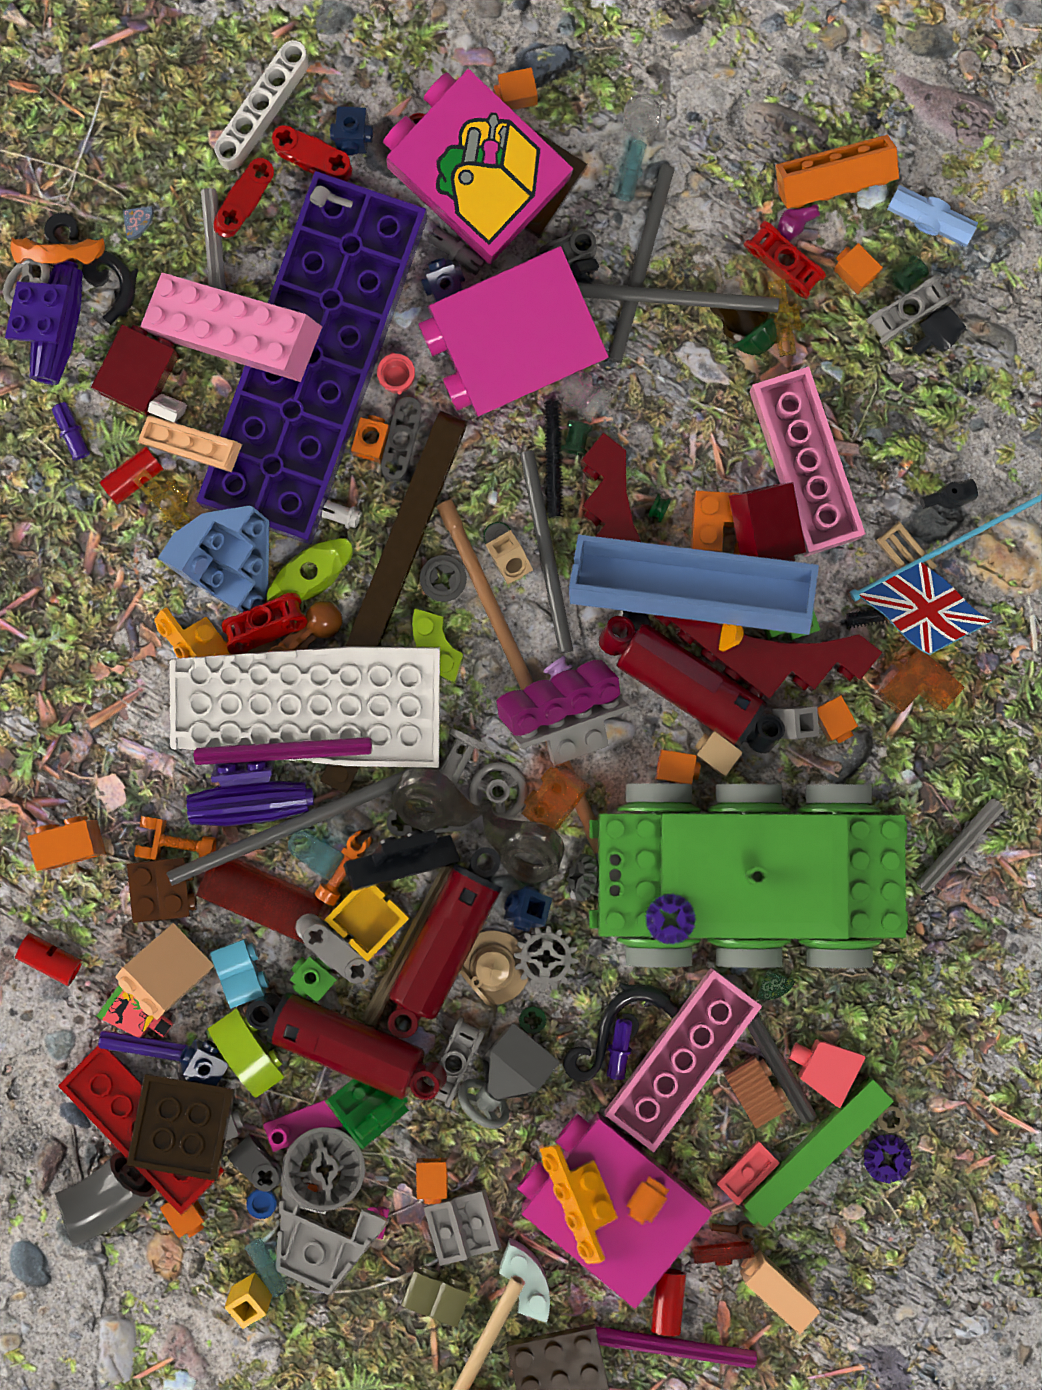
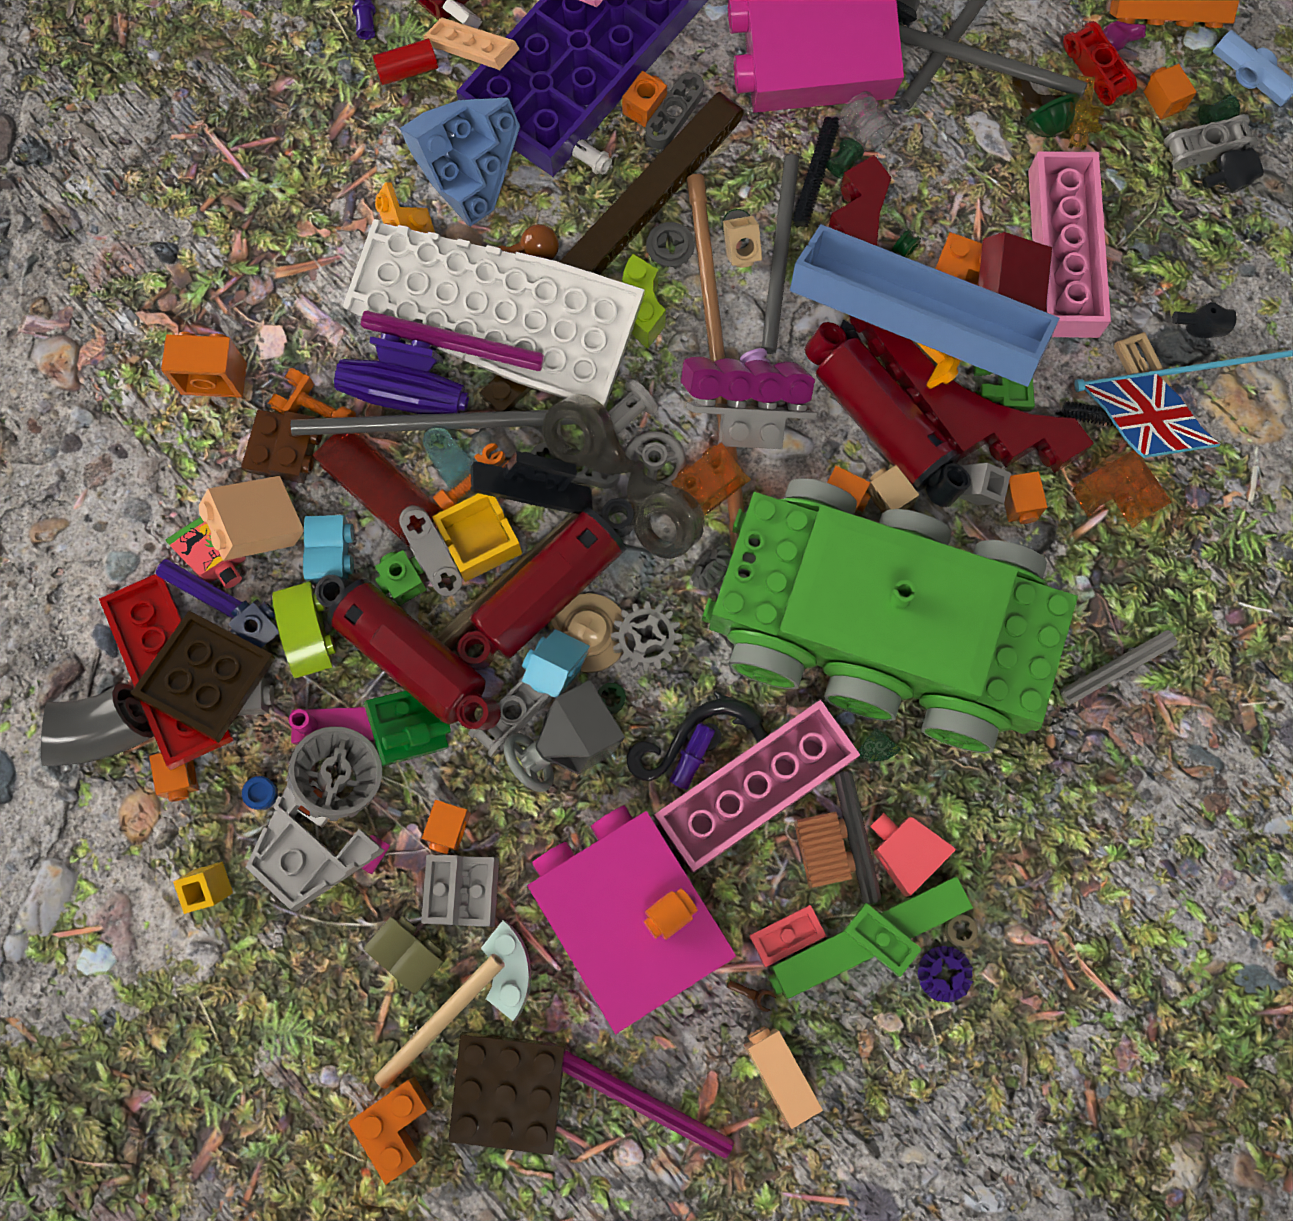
camera: 15 degrees right, 10 degrees down
(48, 959) = (142, 474): red pin -> none
(174, 508) = (427, 83): clear yellow piece -> none
(252, 1159) = (267, 744): dark grey piece -> none
(264, 623) = (483, 224): red piece -> none
(266, 1267) = (236, 861): clear light blue axle -> none
(330, 560) = (520, 206): lime piece -> none
(396, 373) = (690, 47): coral piece -> none
(477, 1014) = (554, 663): none -> medium azure brick
(527, 908) = (644, 578): dark blue brick -> none
(582, 1198) = (599, 889): light orange bracket -> none
(655, 919) = (790, 625): dark purple gear -> none
(669, 1303) = (654, 1049): red pin -> none
(722, 1253) = (731, 1015): clear red plate -> none
(827, 1155) = (882, 940): none -> bright green plate

